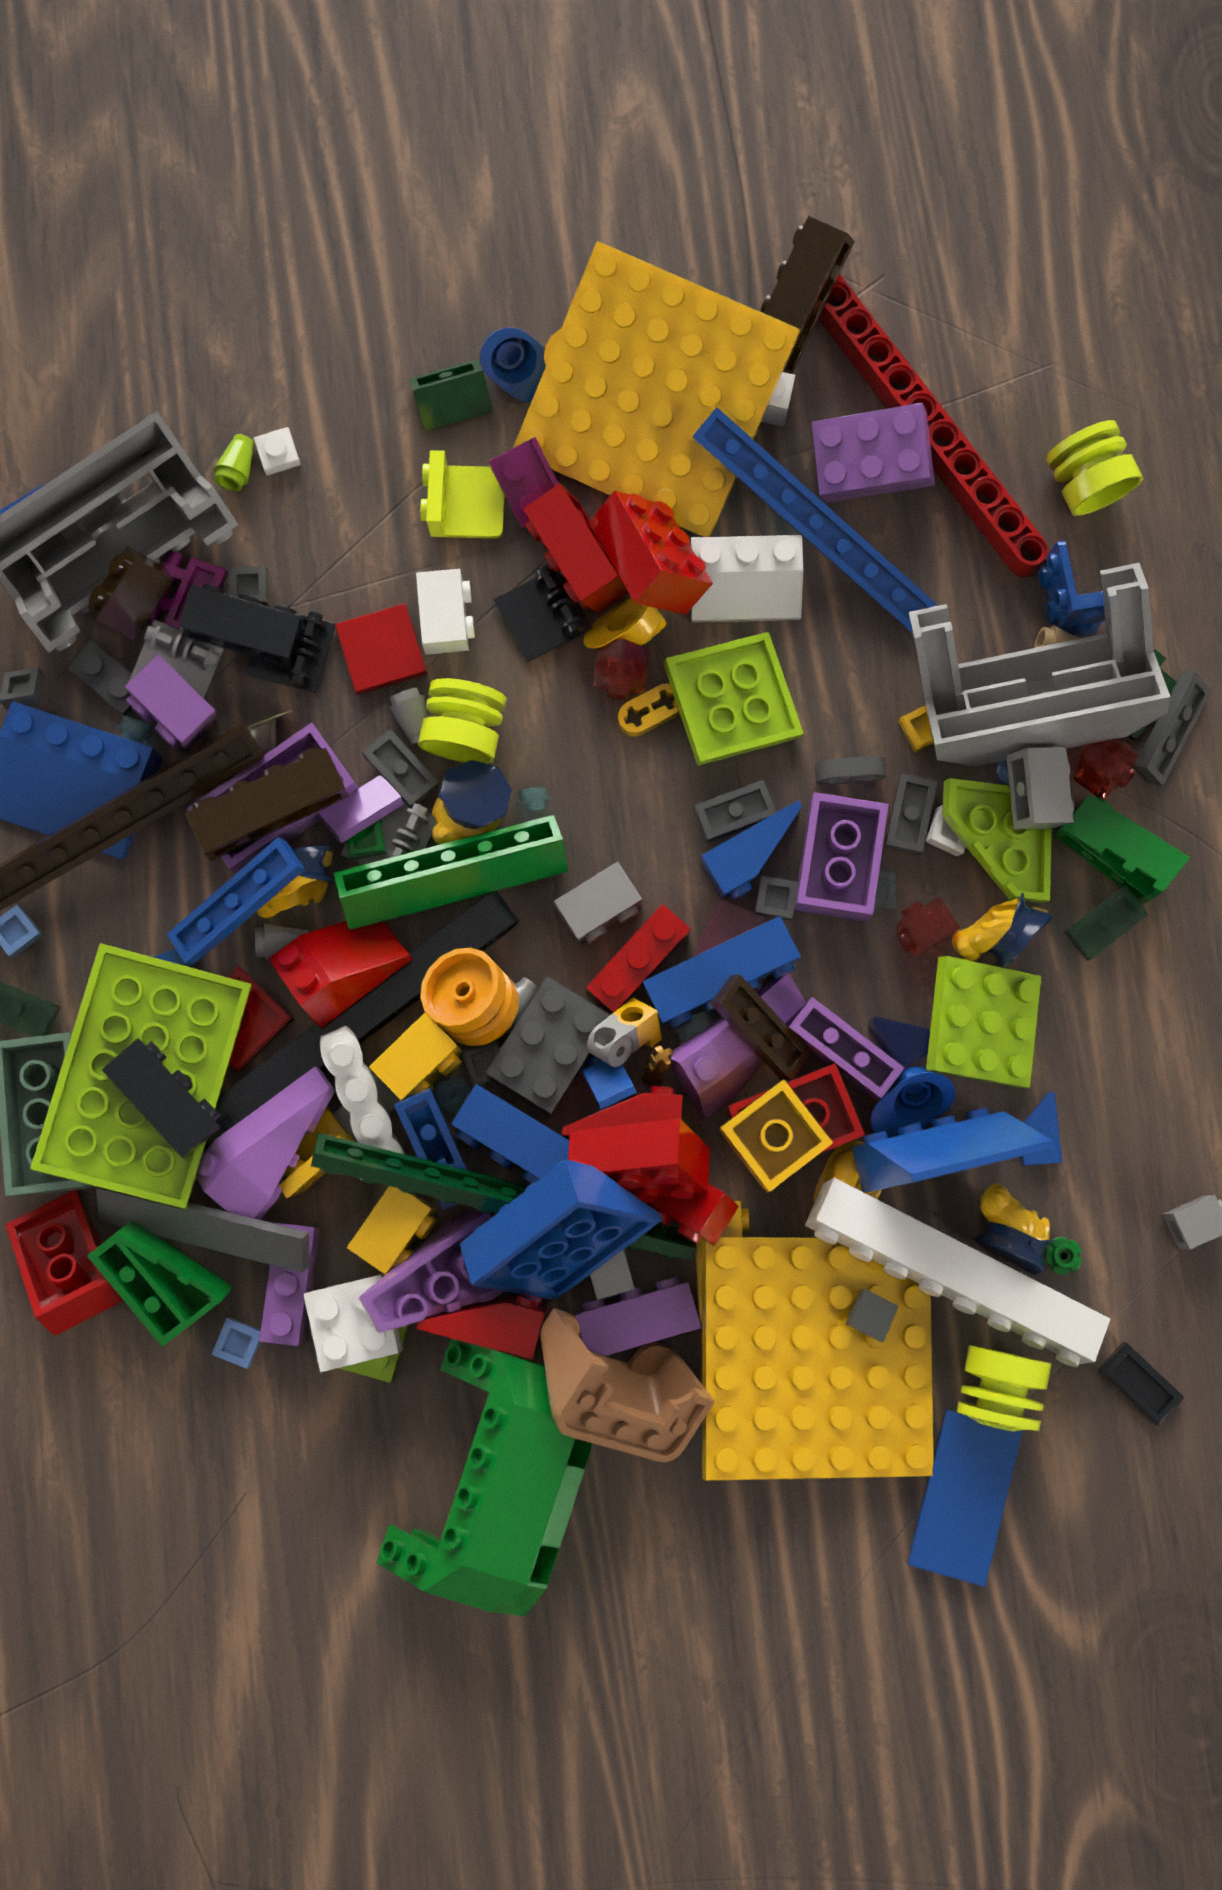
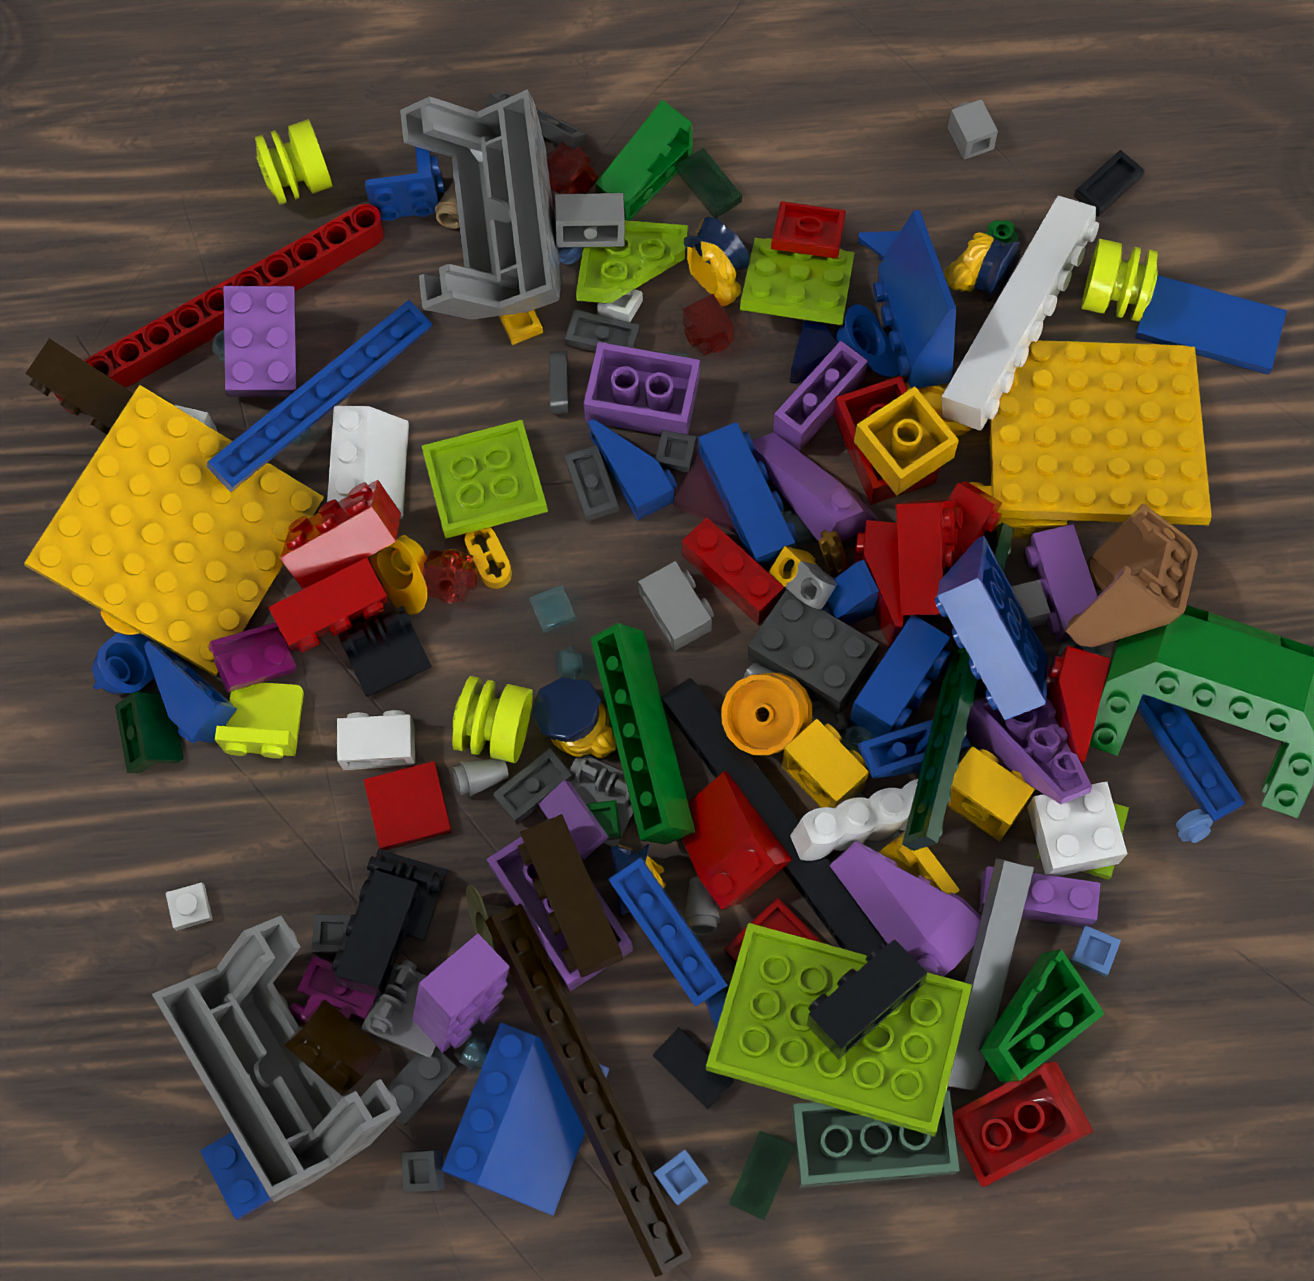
camera: 85 degrees left, 10 degrees down
(127, 931) = (688, 1066): none -> black tile
(234, 465) = (199, 946): lime cone -> none
(370, 1452) = (1194, 826): none -> medium blue plate
(429, 1461) = (1190, 757): none -> blue plate
(485, 424) = (187, 696): none -> blue slope
(592, 778) = (552, 609): none -> clear light blue plate
(760, 1027) = (802, 457): dark brown plate -> none
(871, 1315) = (1059, 380): dark grey tile -> none
(1051, 1034) = (808, 229): none -> red tile

